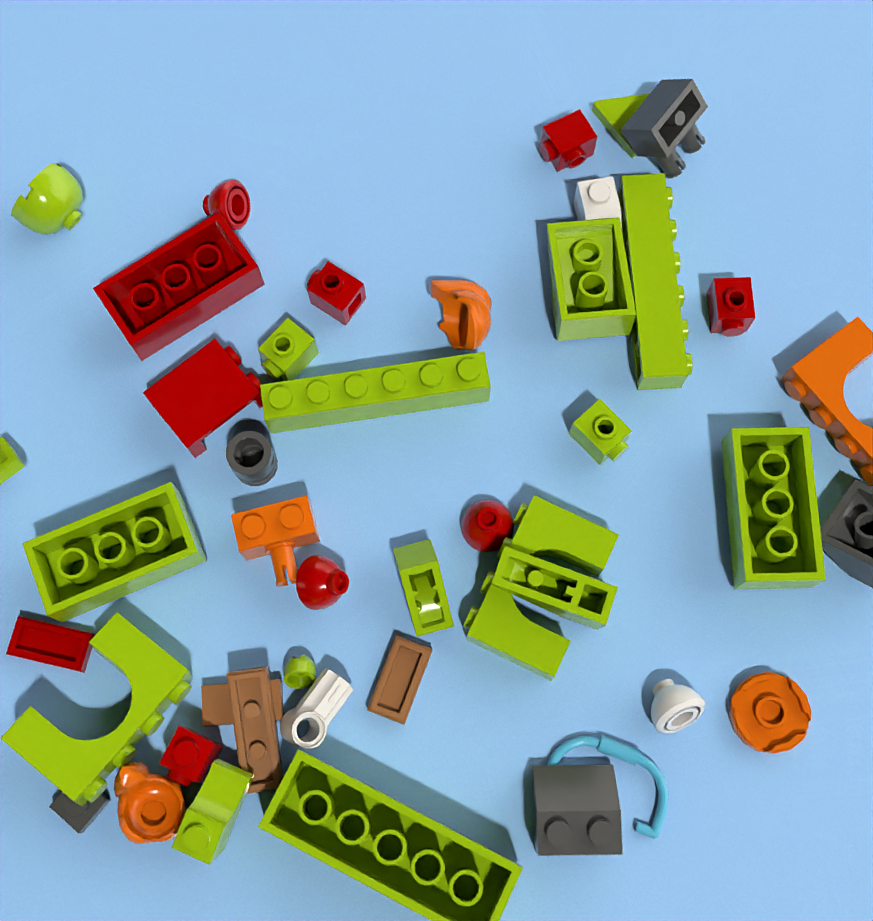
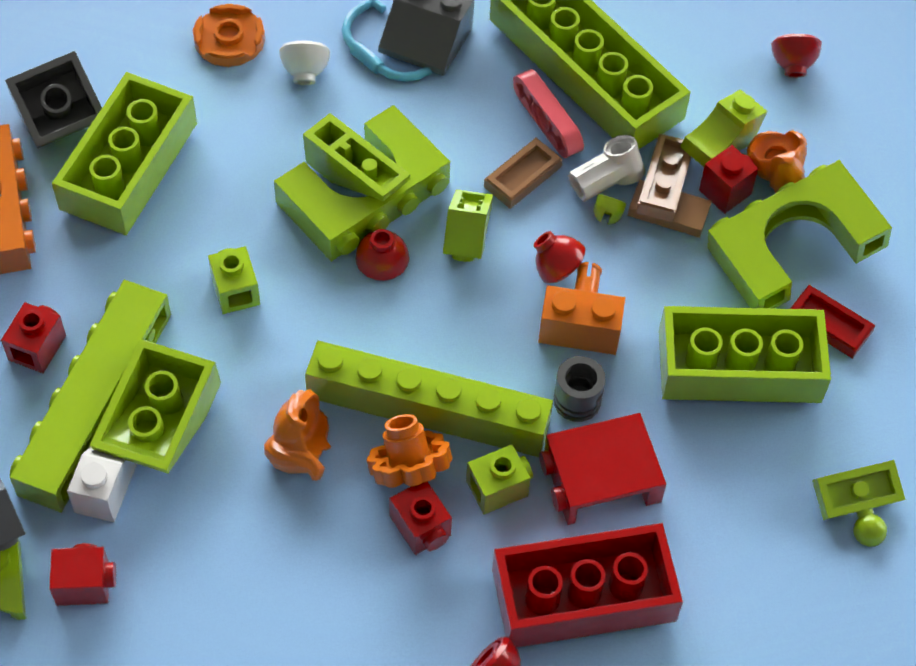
camera: 160 degrees left, 15 degrees down
(365, 329) = (408, 454): none -> orange plant
(404, 758) = (548, 113): none -> coral beam

